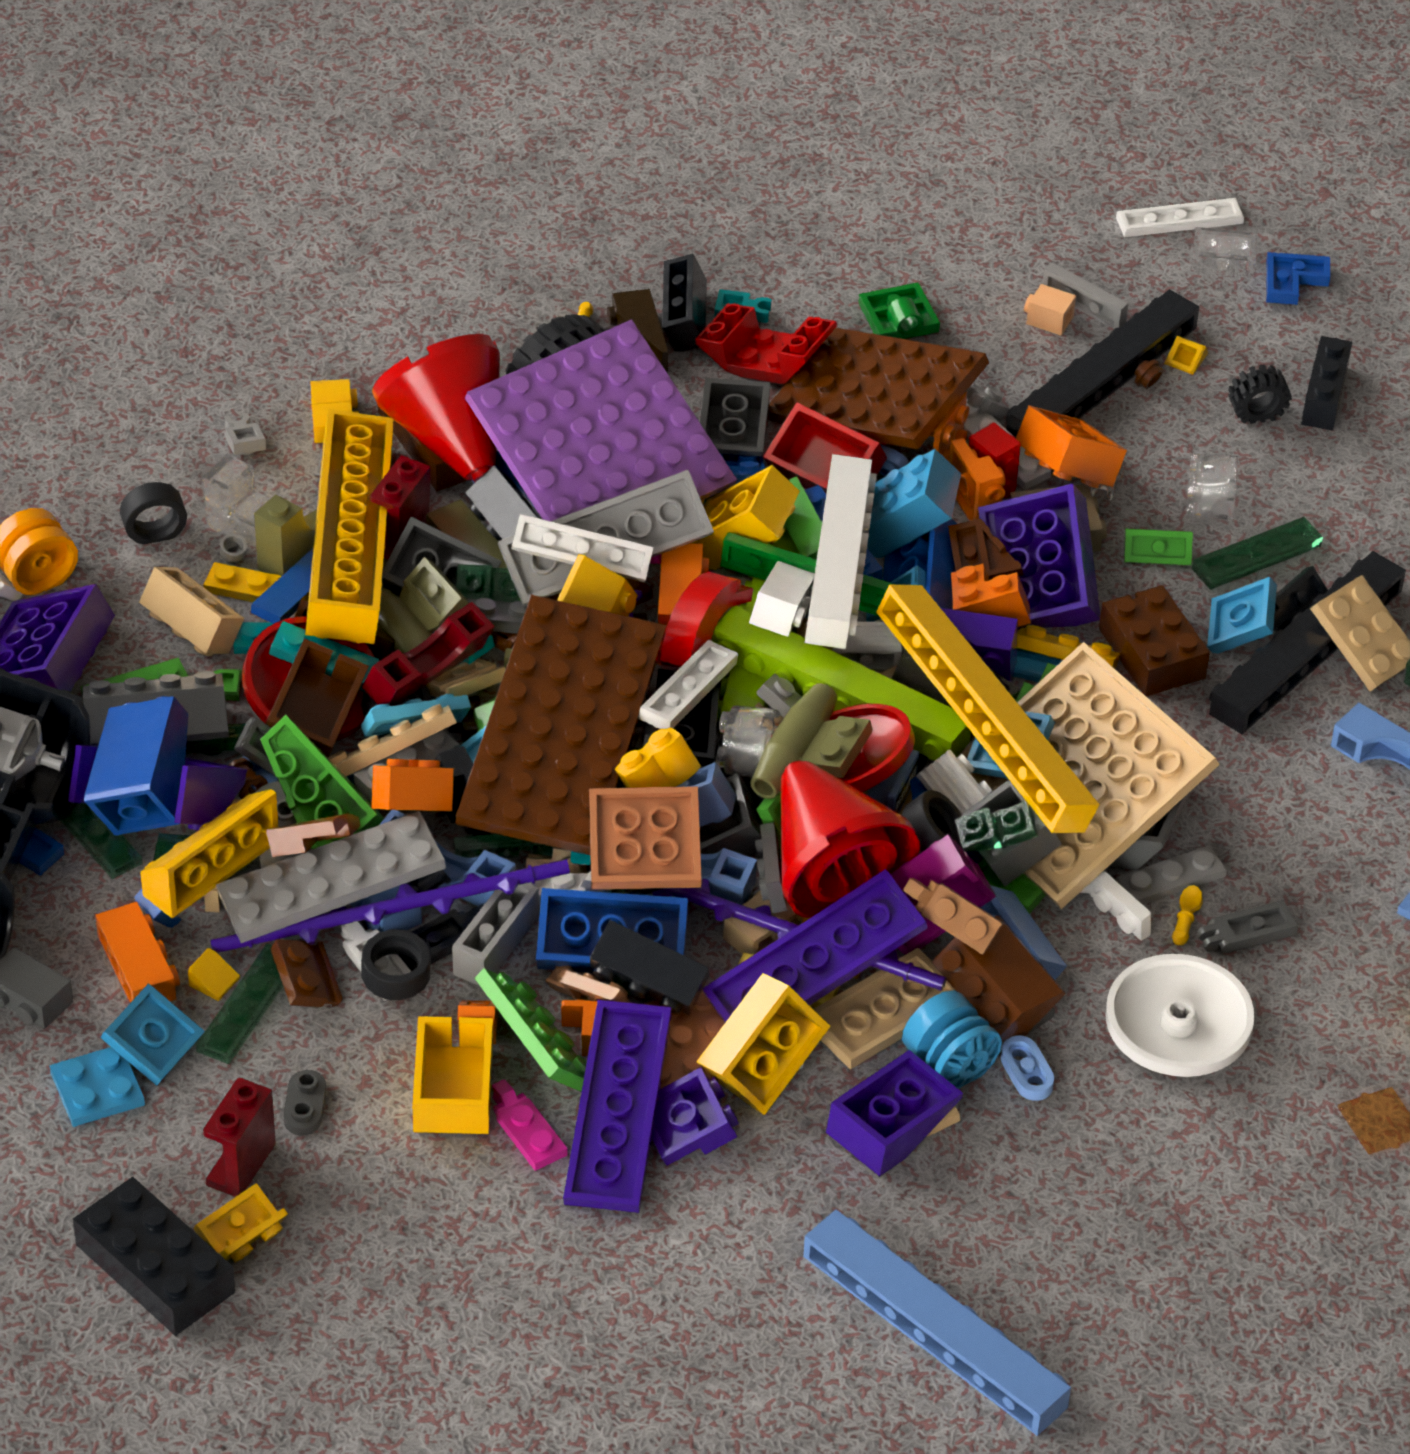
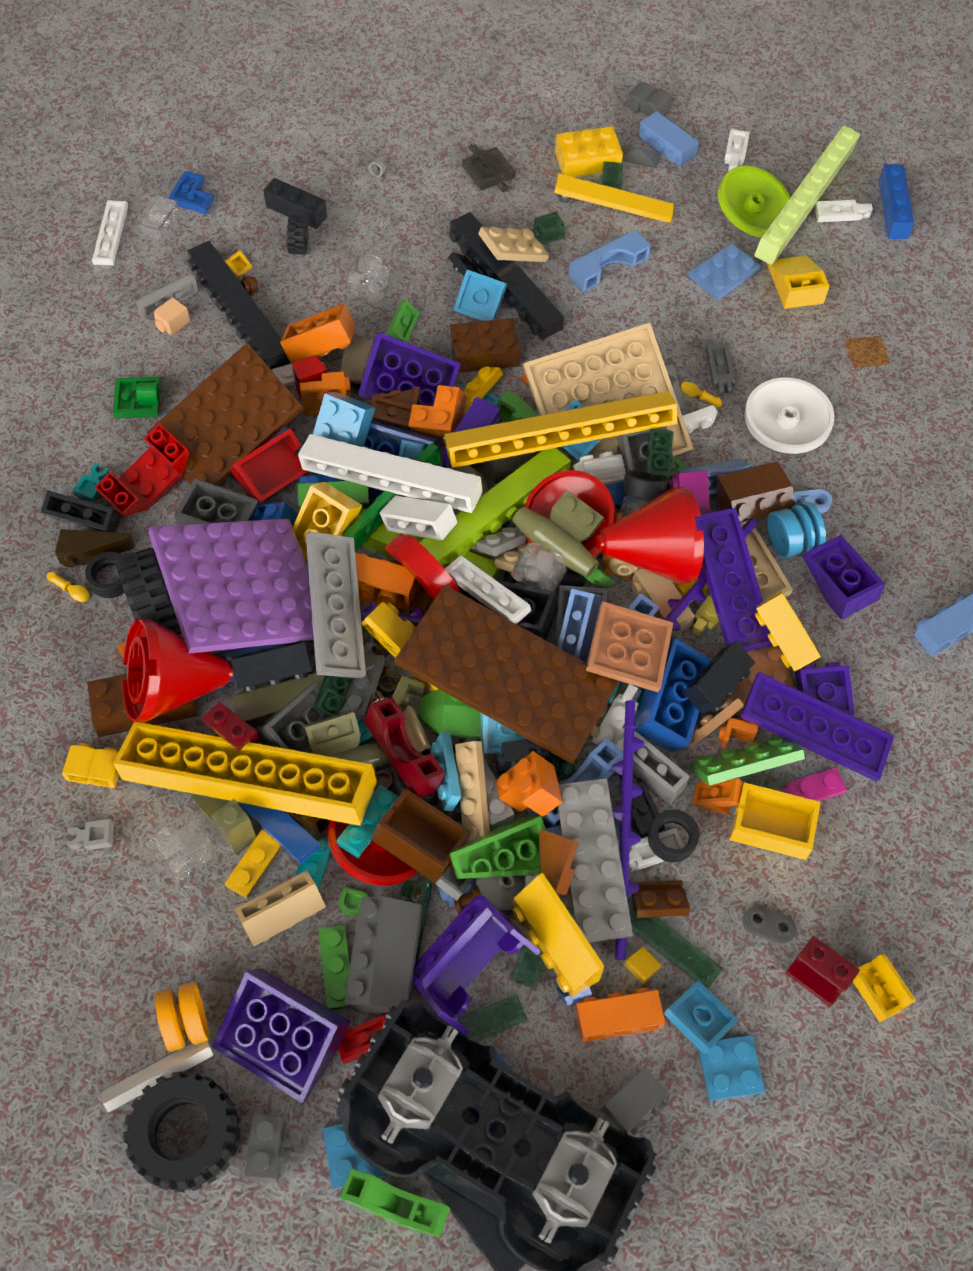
camera: 75 degrees left, 15 degrees up
(139, 765) = (460, 971): blue slope -> none
(145, 497) = (166, 916): black tyre -> none
(154, 1256) = (904, 1053): black brick -> none
(231, 543) = (220, 865): light grey hinge -> none
(566, 542) = (347, 620): white plate -> none
(660, 763) = (562, 619): yellow brick -> none
(770, 867) = (647, 586): dark grey plate -> none
(954, 914) = (728, 492): medium nougat hinge -> none
(1257, 553) = (422, 278): clear green plate -> none

